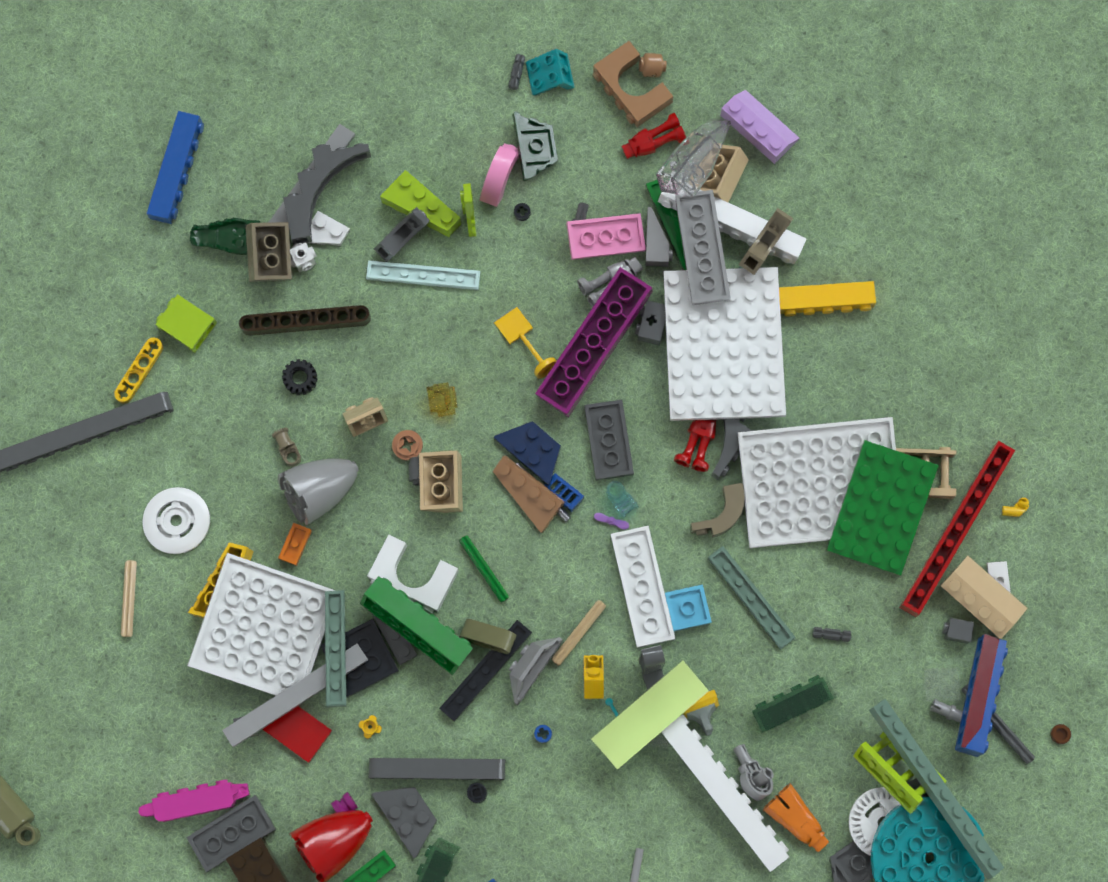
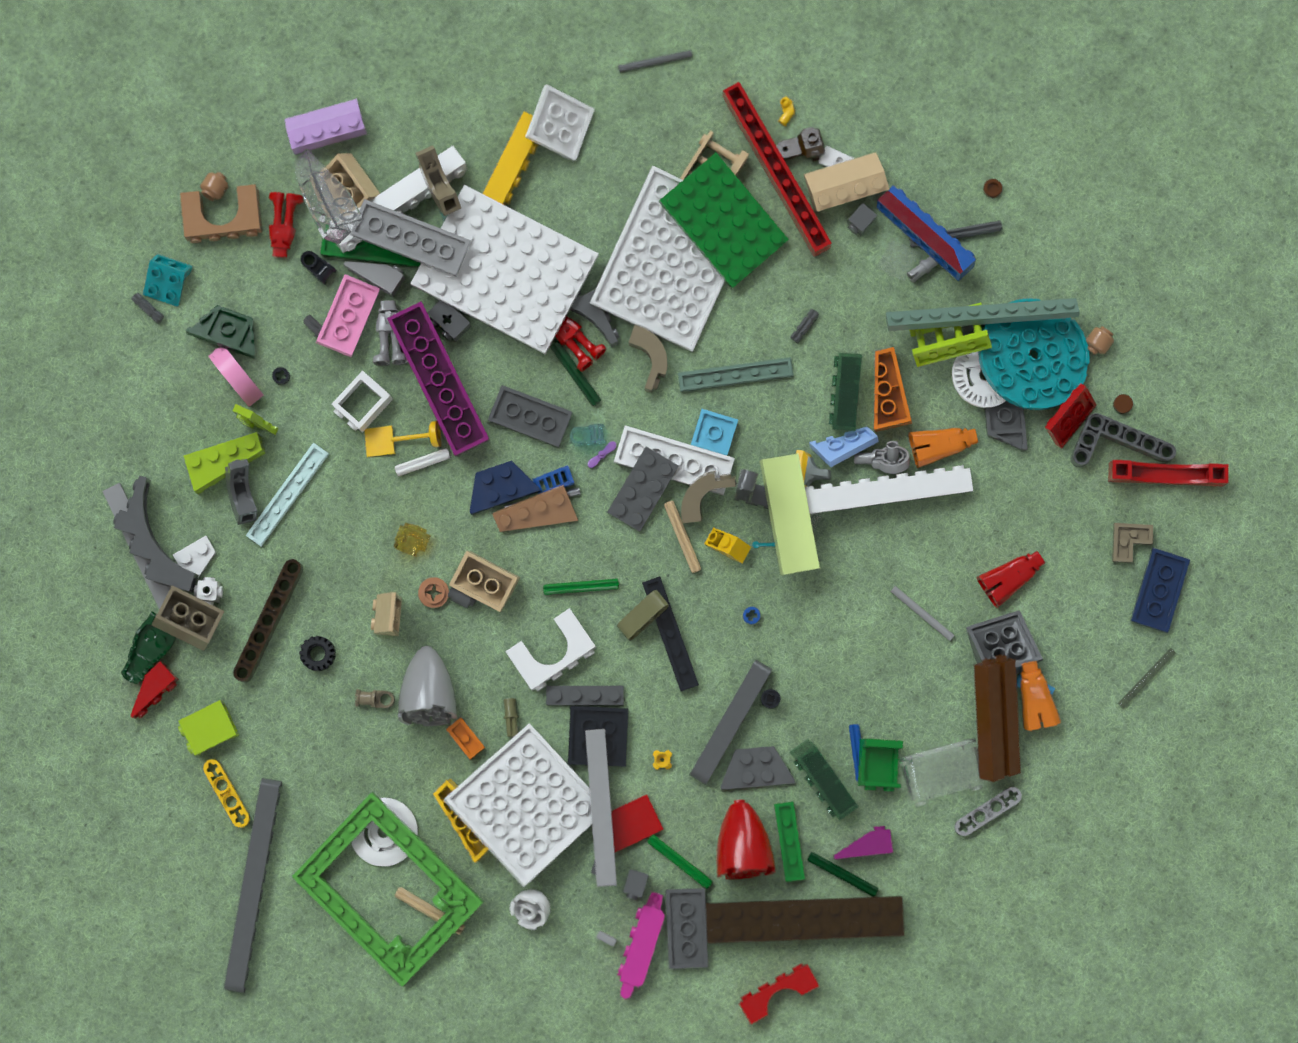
camera: 60 degrees left, 5 degrees up
(71, 596) = (396, 958): none -> bright green plate
(175, 167) = (55, 660): blue brick -> none
(175, 684) = (530, 908): none -> white cylinder
(184, 766) = (606, 938): none -> light grey tile
(198, 258) = (154, 685): none -> red slope
(244, 764) = (635, 884): none -> dark grey brick
(287, 794) = (679, 861): none -> green axle
(335, 572) = (511, 716): none -> olive axle
(335, 648) = (580, 751): sand green tile -> none
(346, 803) = (717, 816): magenta wheel -> none
(416, 625) = (599, 670): green brick -> none
(516, 371) = (422, 462): none -> white axle
(530, 666) = (688, 593): light grey wedge -> none
(551, 309) = (373, 413): none -> white window
(601, 573) = (643, 488): none -> dark grey plate
(614, 622) = (691, 505): none -> dark tan arch
(633, 190) = (319, 269): none -> black piece
(668, 459) = (575, 373): none -> dark green axle
(738, 728) = (840, 448): none -> light blue wing
(810, 748) = (890, 399): none -> orange wedge
(882, 317) = (559, 123): none -> white plate
(989, 368) = (655, 61): none -> dark grey bar
(996, 543) = (806, 144): none -> piece

